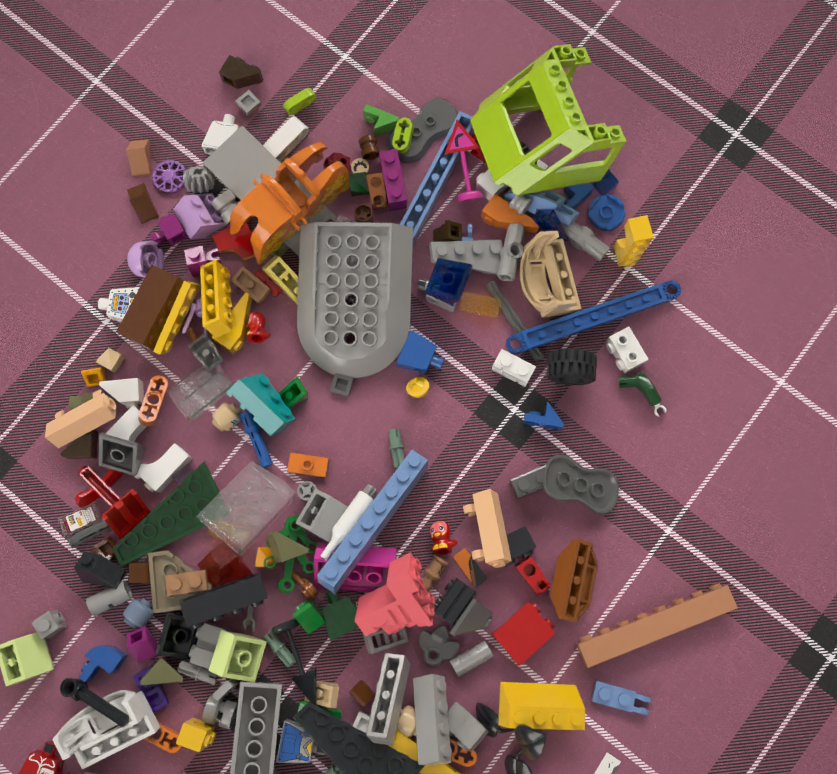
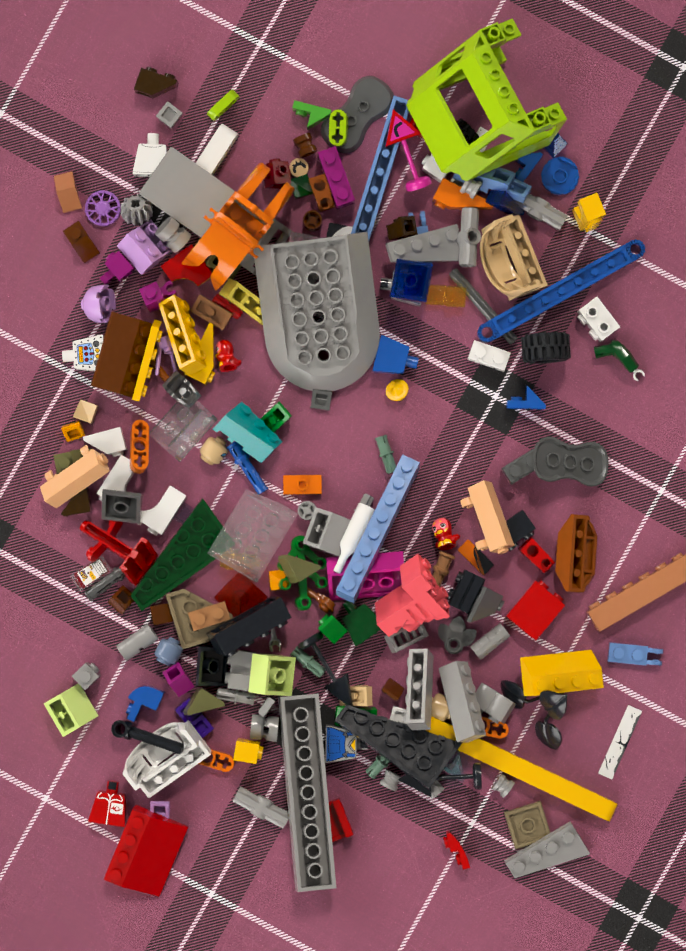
camera: 10 degrees left, 10 degrees up
(99, 570) = (123, 618): black slope -> none

